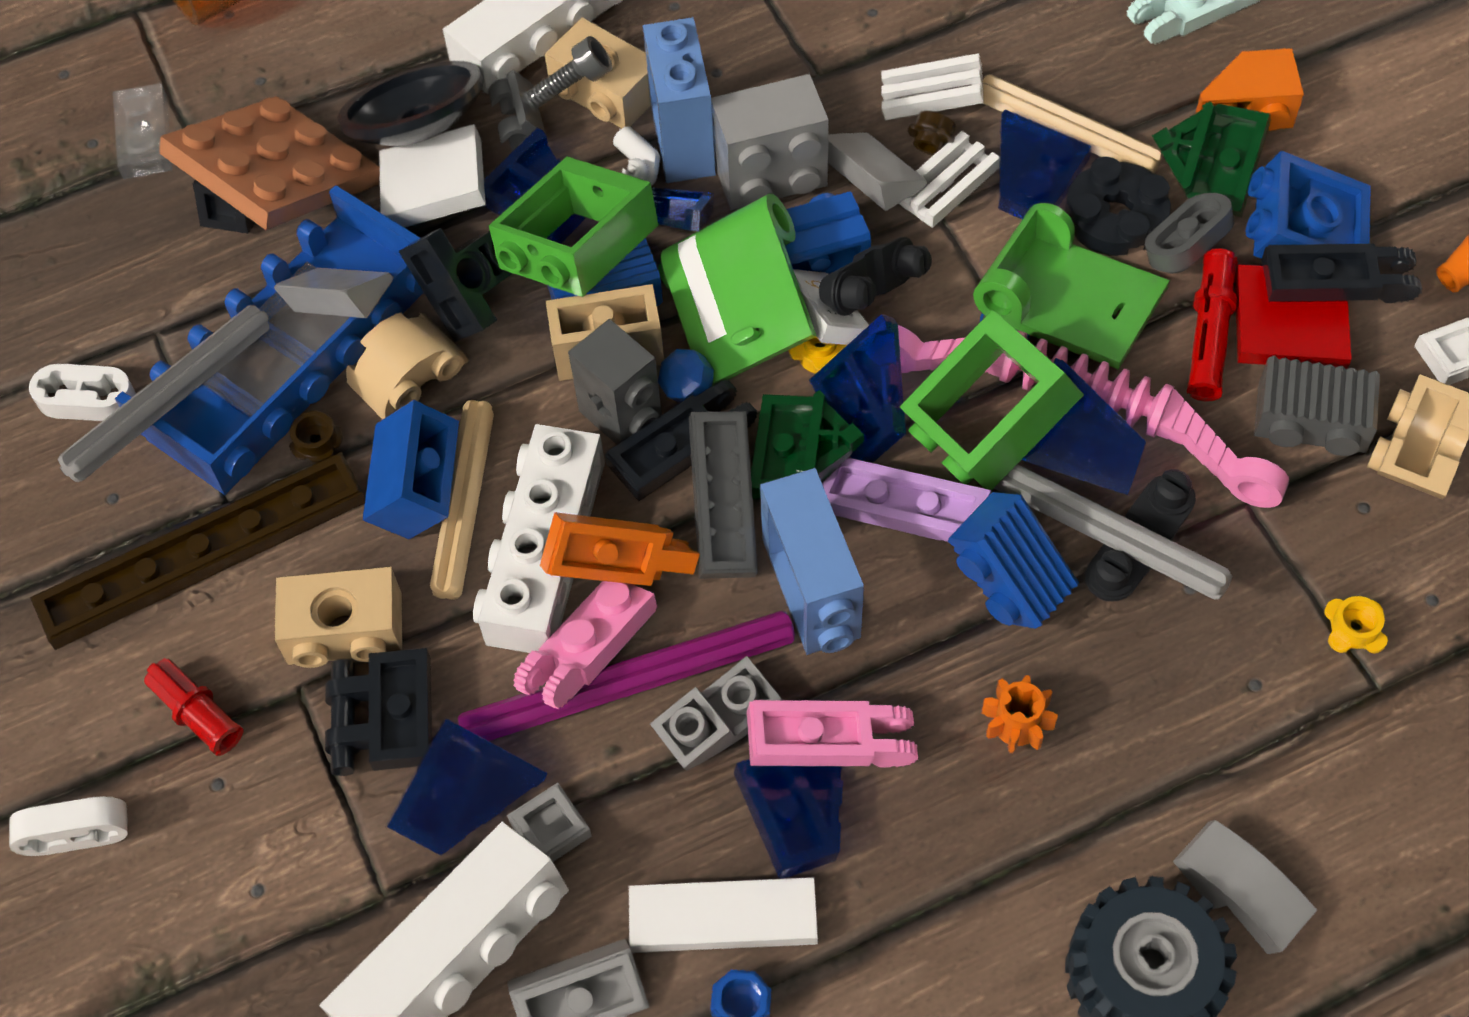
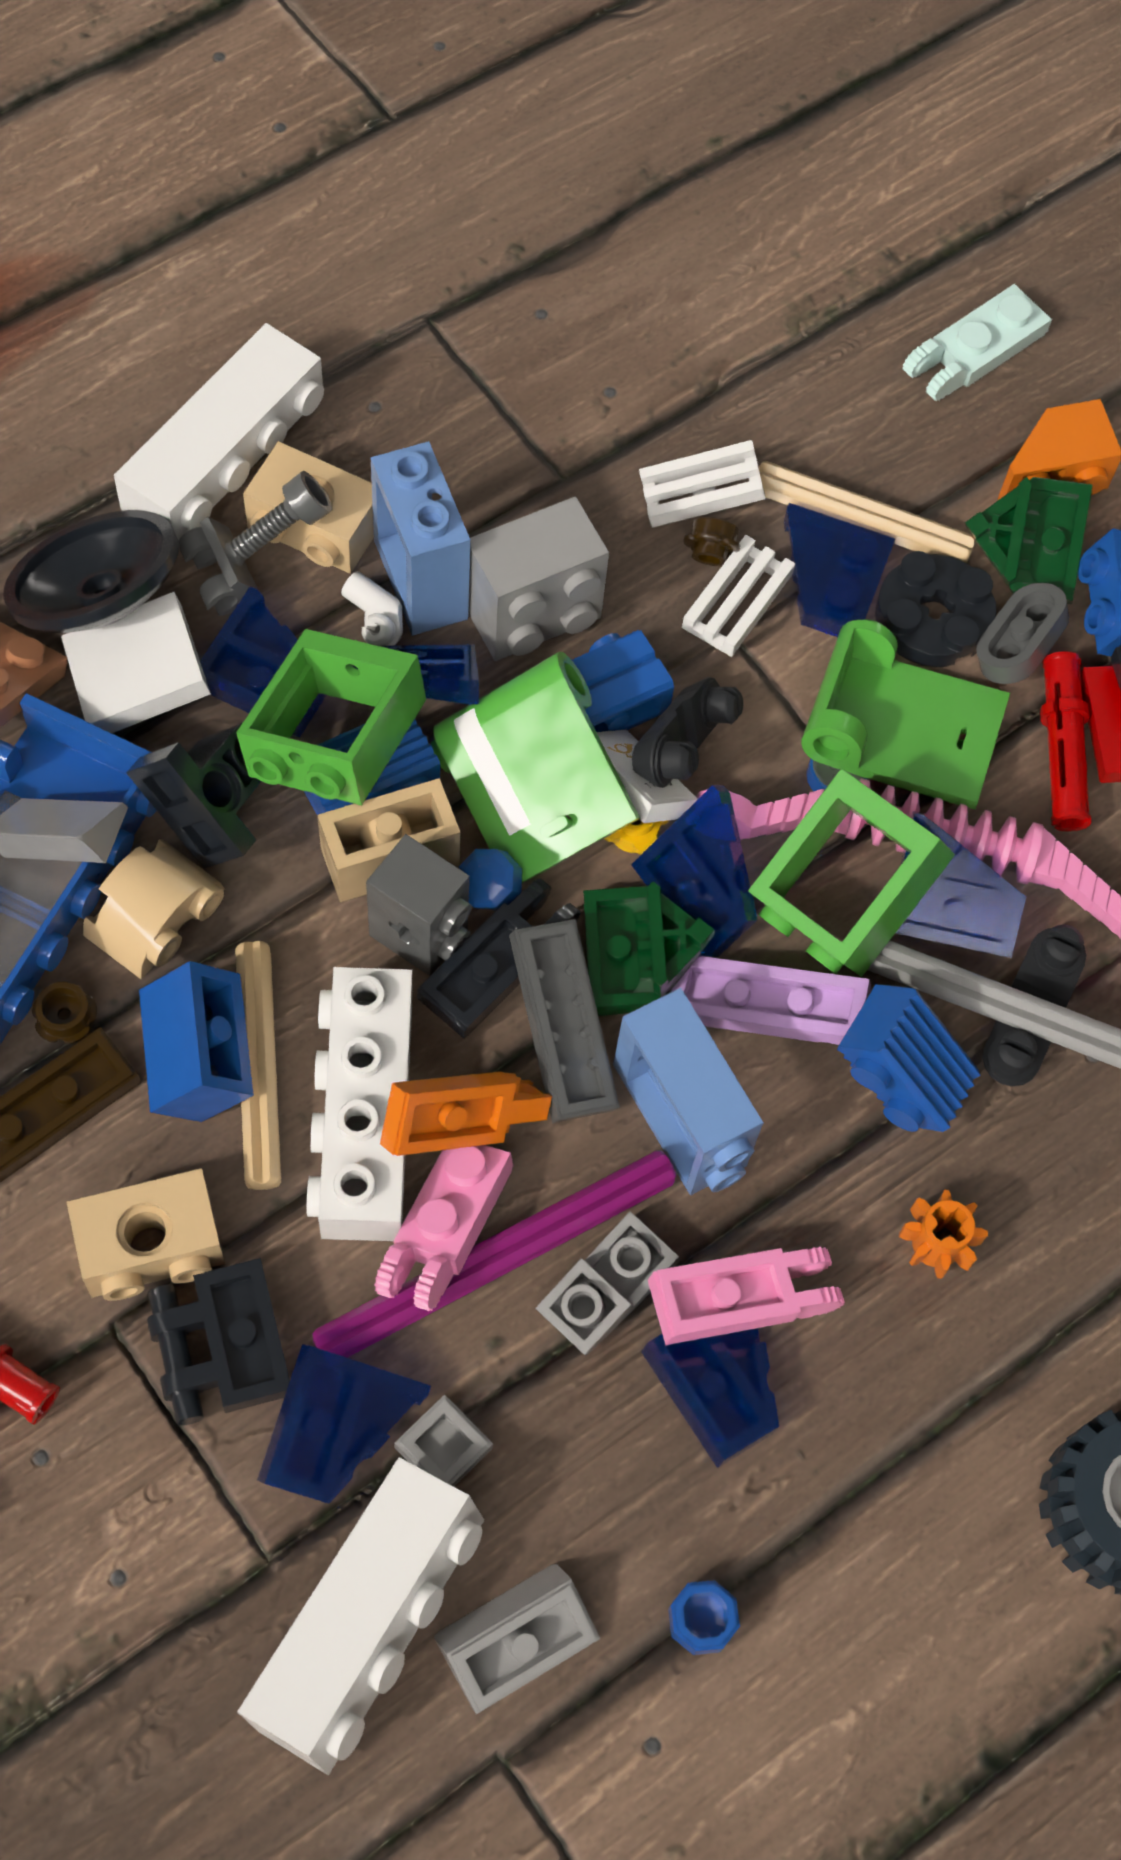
camera: 20 degrees left, 5 degrees up
(722, 915) = (661, 1518): white tile -> none
(873, 168) = (658, 595): light grey slope -> none

